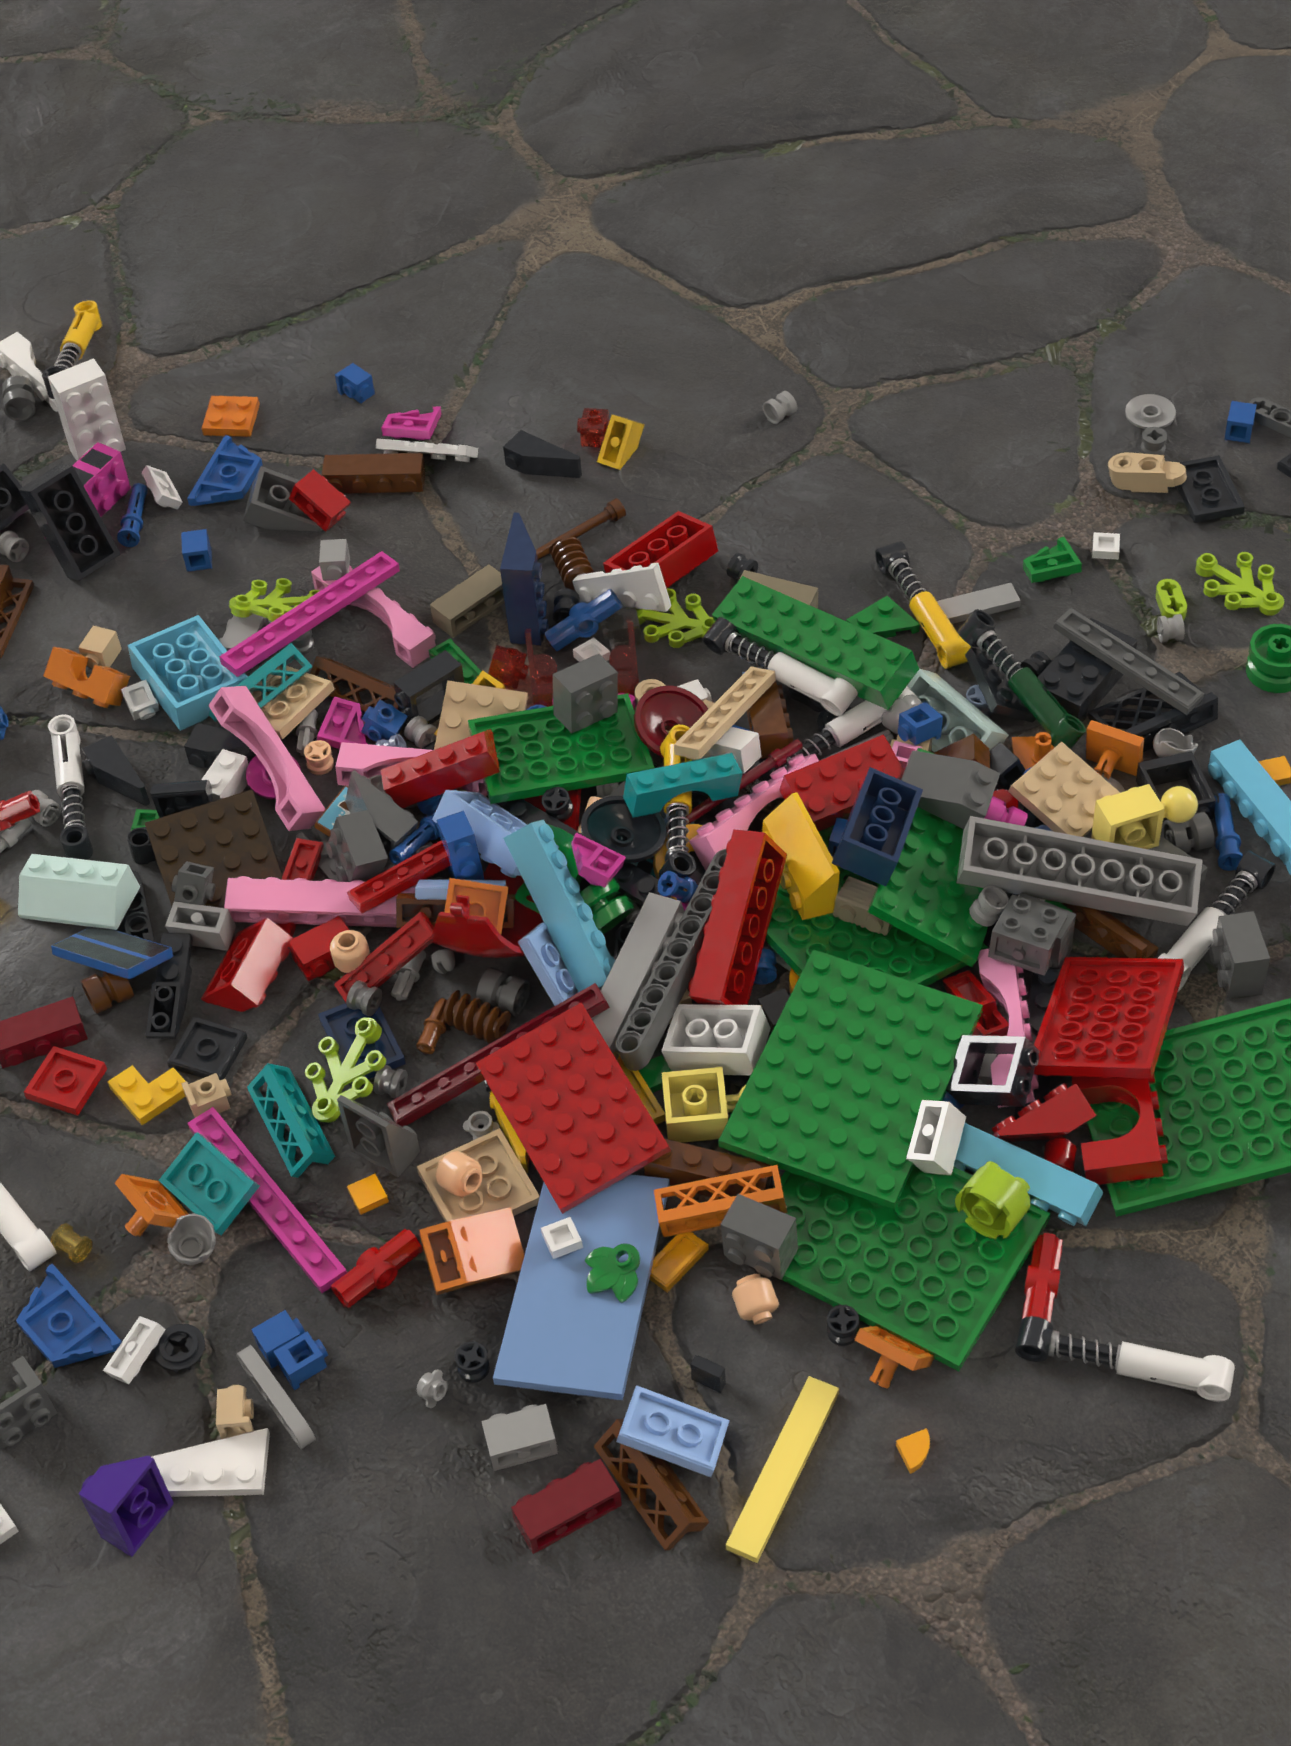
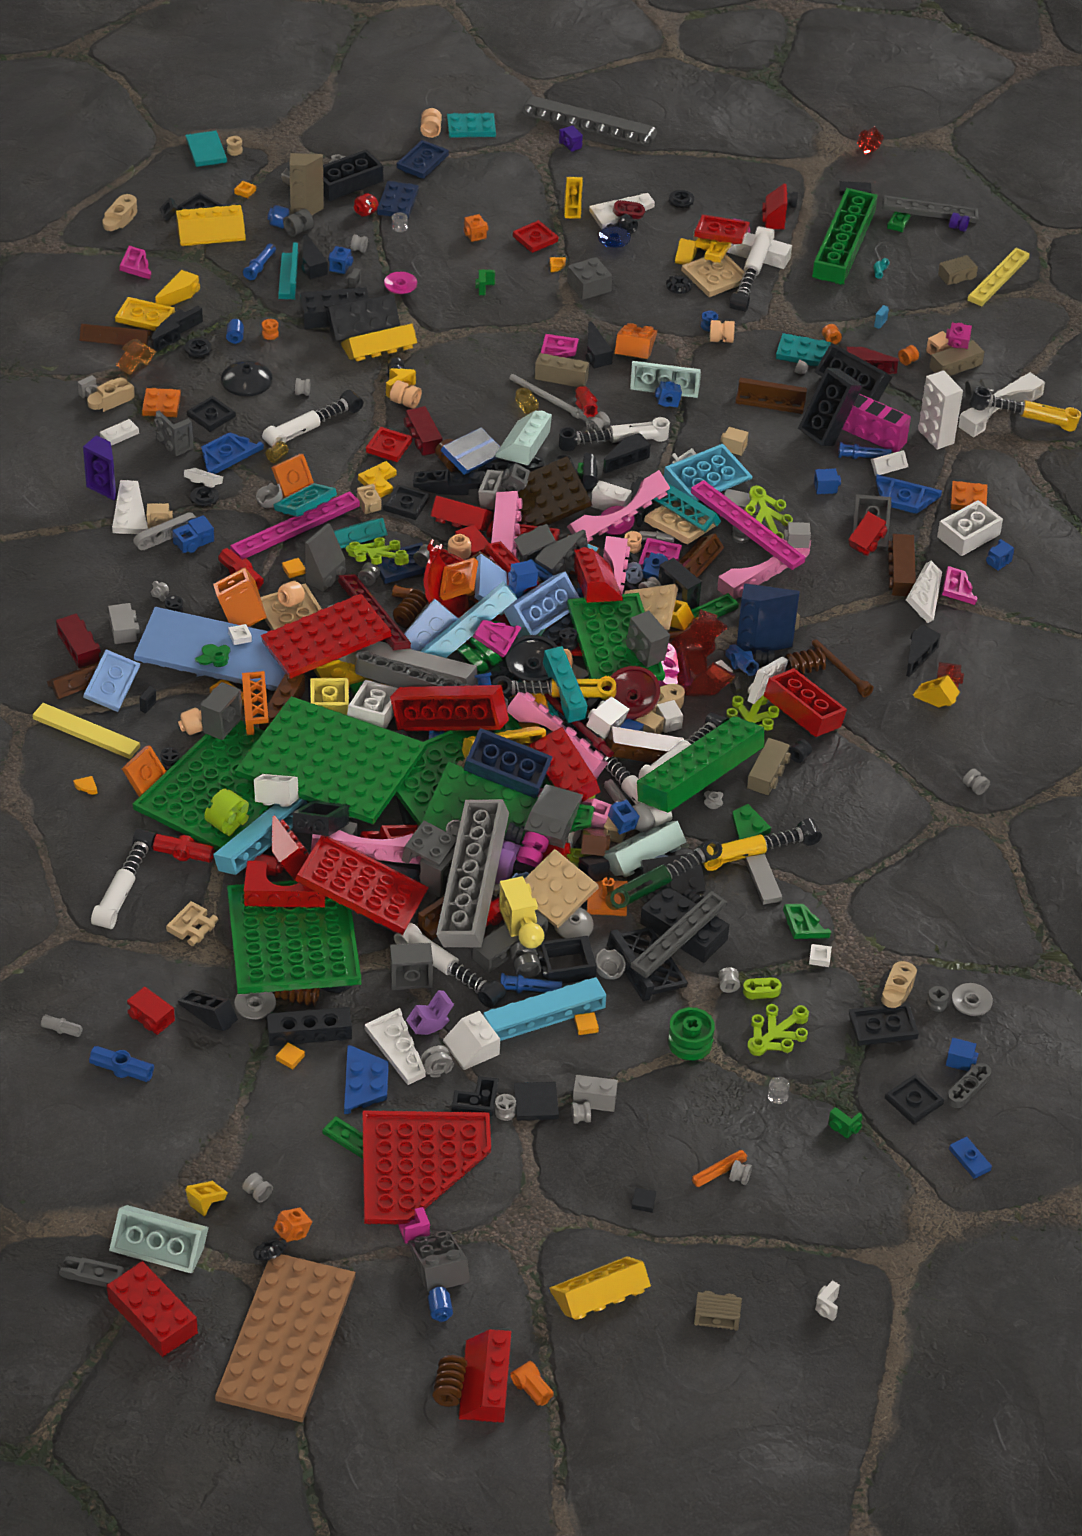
camera: 85 degrees right, 5 degrees down
(68, 670) = (701, 436): orange arch -> none
(307, 405) = (969, 528): none -> white brick
(724, 713) = (630, 710): tan plate -> none
(1113, 749) = (600, 923): orange tile -> none
(1195, 1260) = (188, 919): none -> tan plate

